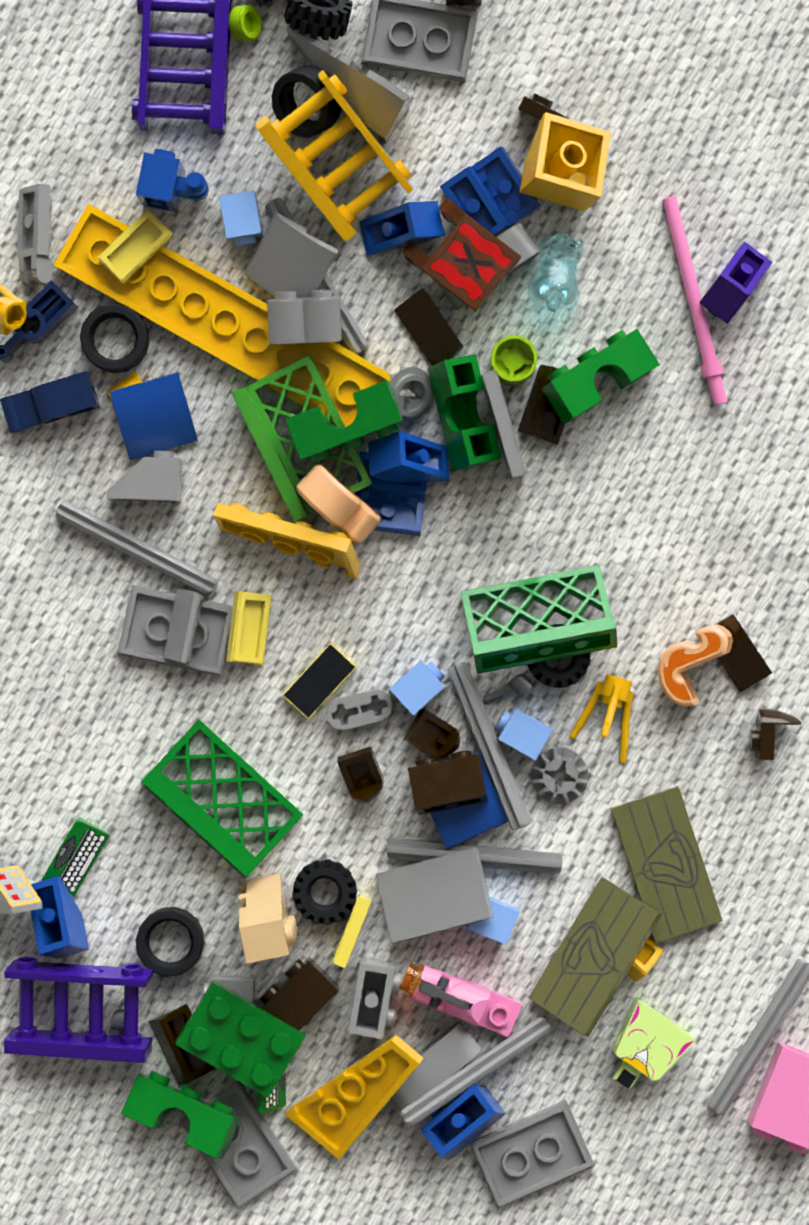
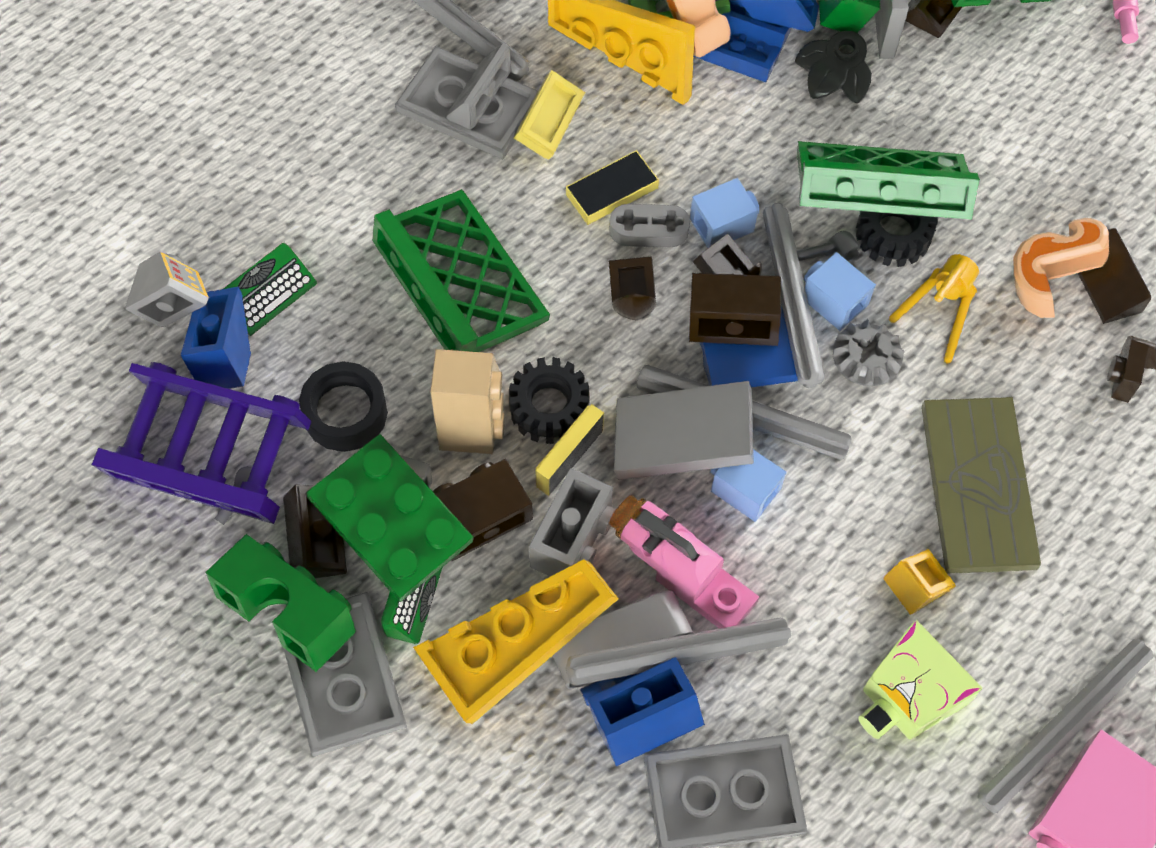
camera: 15 degrees right, 25 degrees down
(475, 512) = (835, 70): none -> pearl dark grey plate
(595, 956) = (868, 559): olive tile -> none

